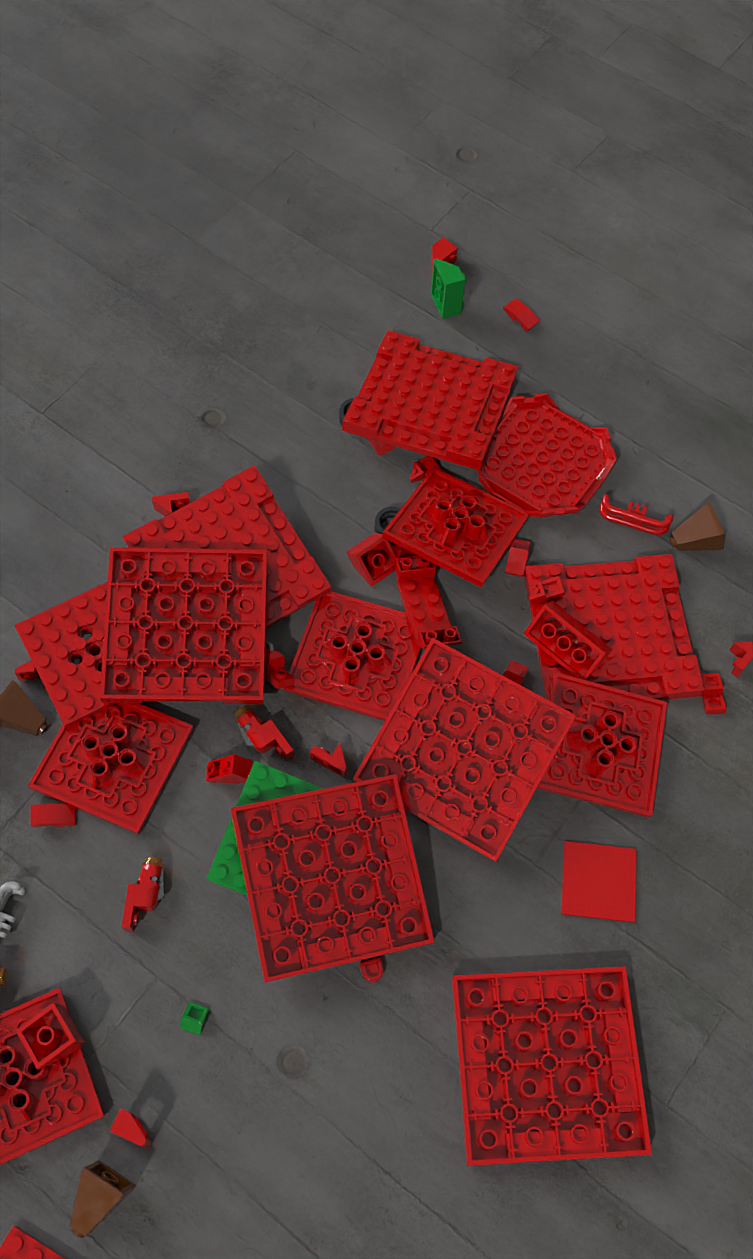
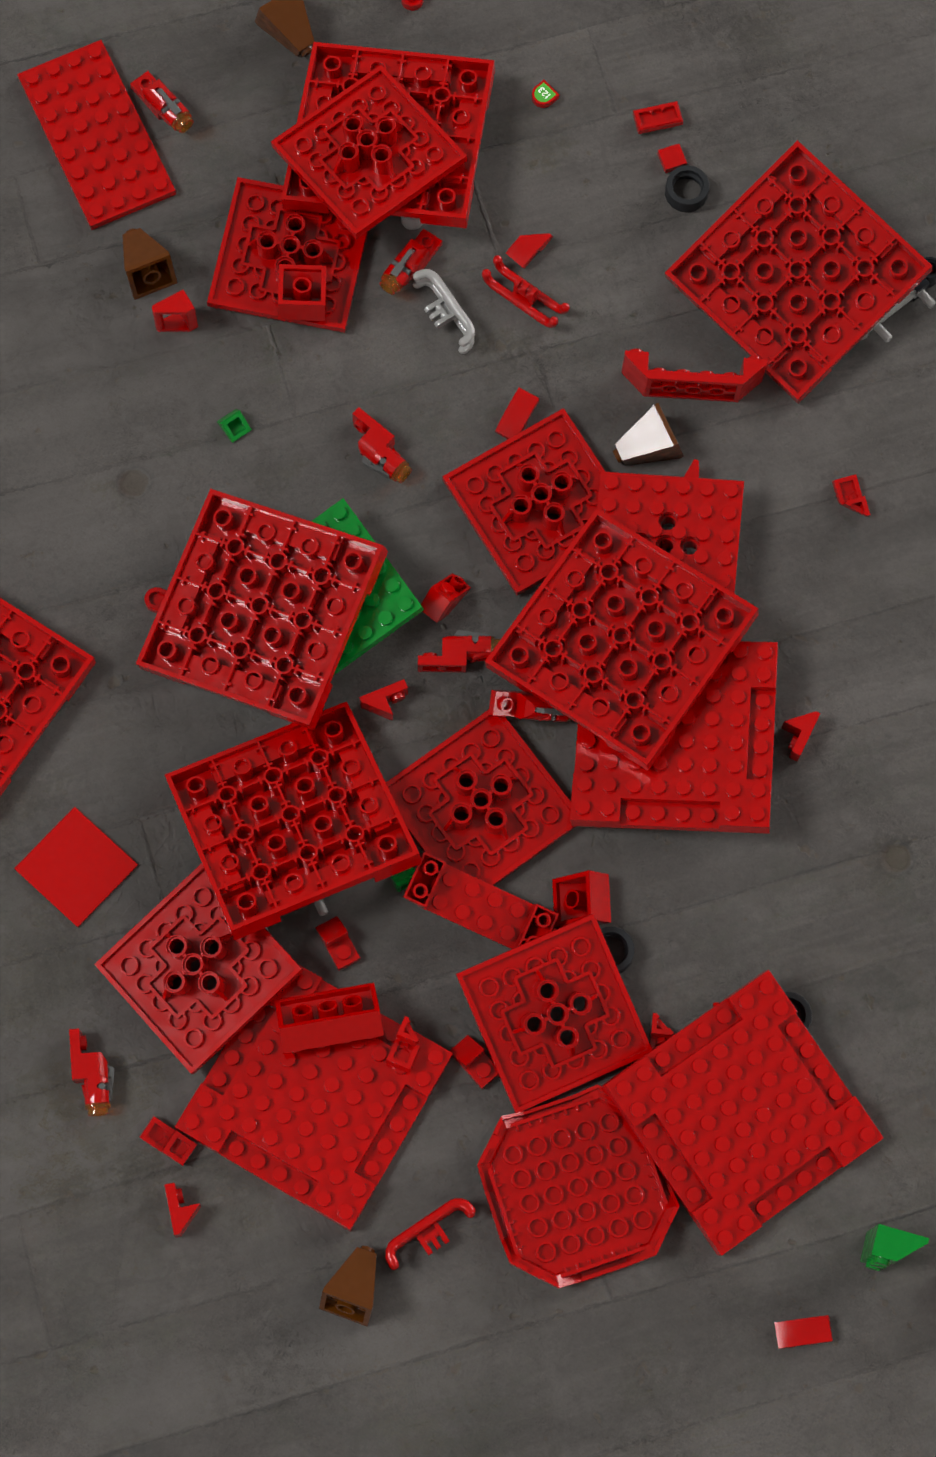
camera: 125 degrees right, 10 degrees up
(716, 765) = (92, 1071): none -> red plate

